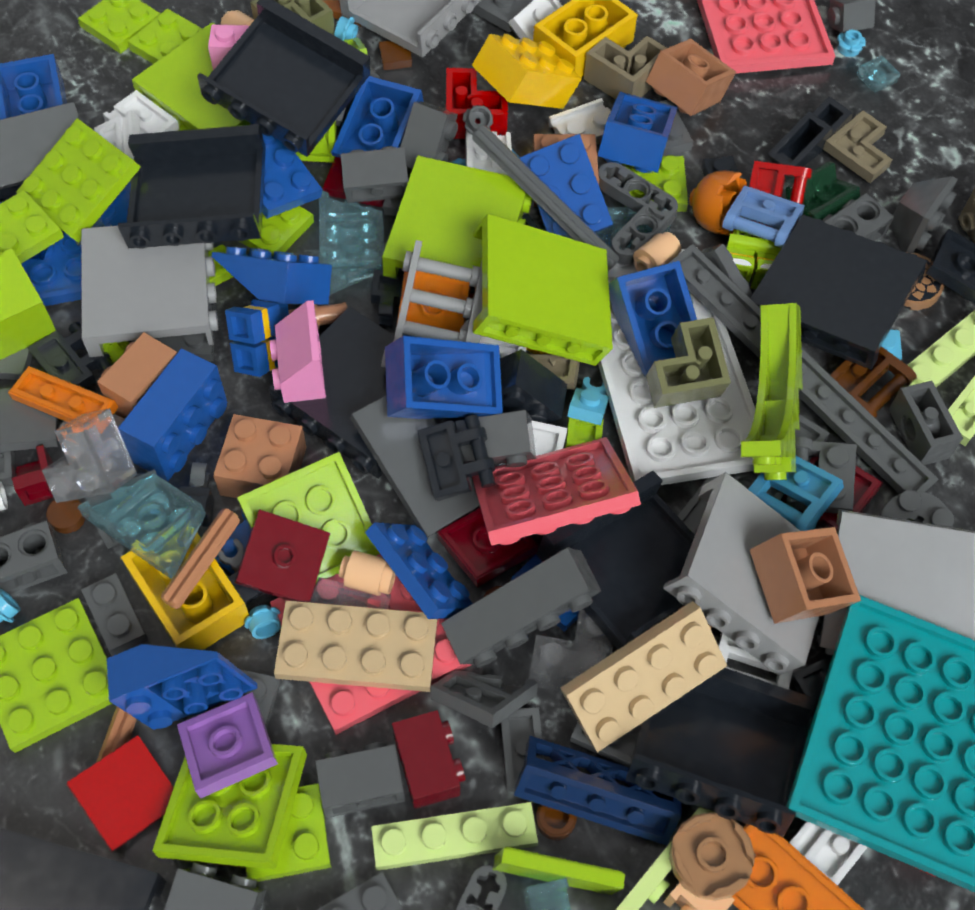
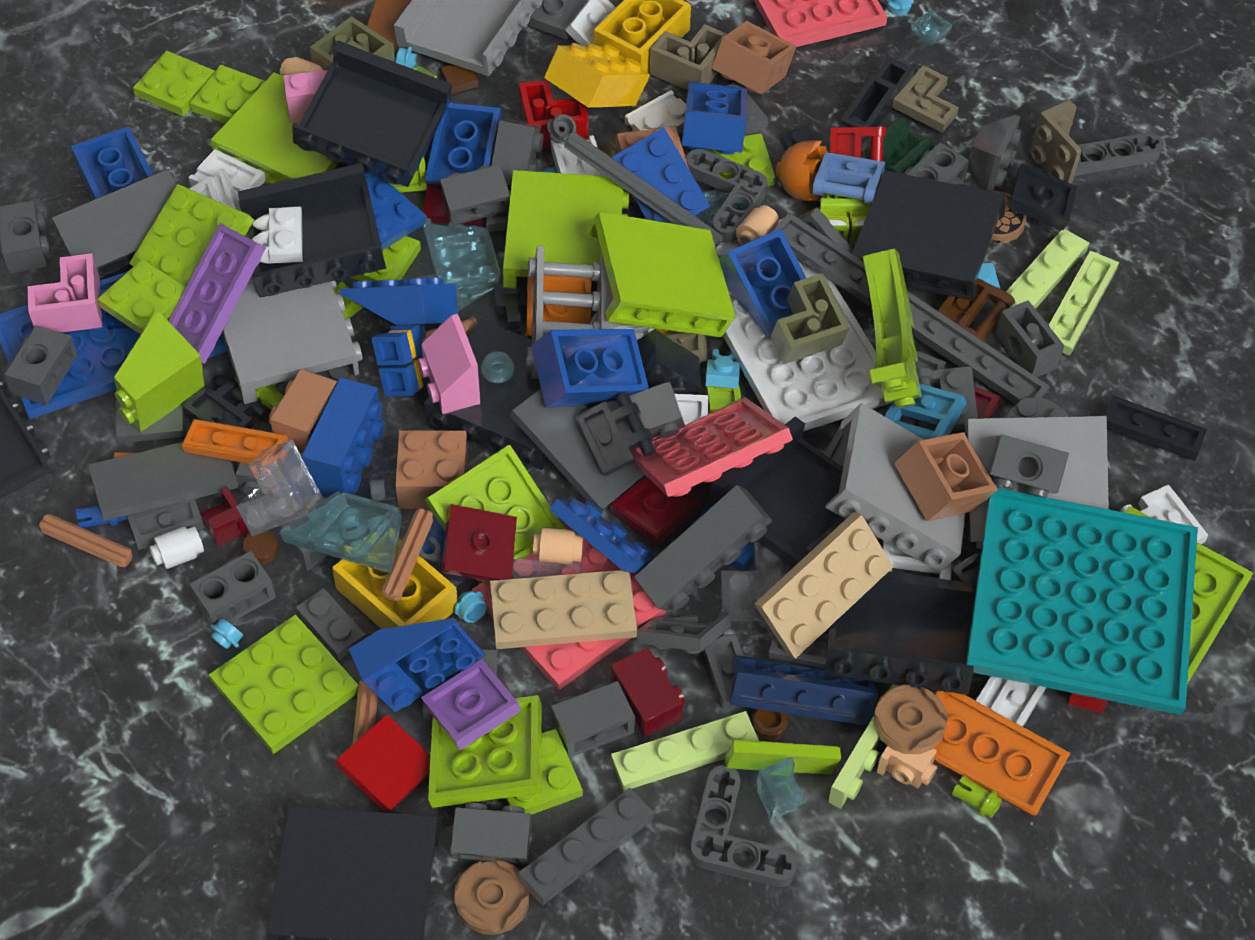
camera: 10 degrees left, 5 degrees down
(78, 236) = (215, 288): none -> medium lavender plate
(163, 187) = (281, 235): none -> white plate
(351, 354) = (497, 360): none -> clear light blue plate
(924, 584) = (1048, 465): none -> dark grey brick

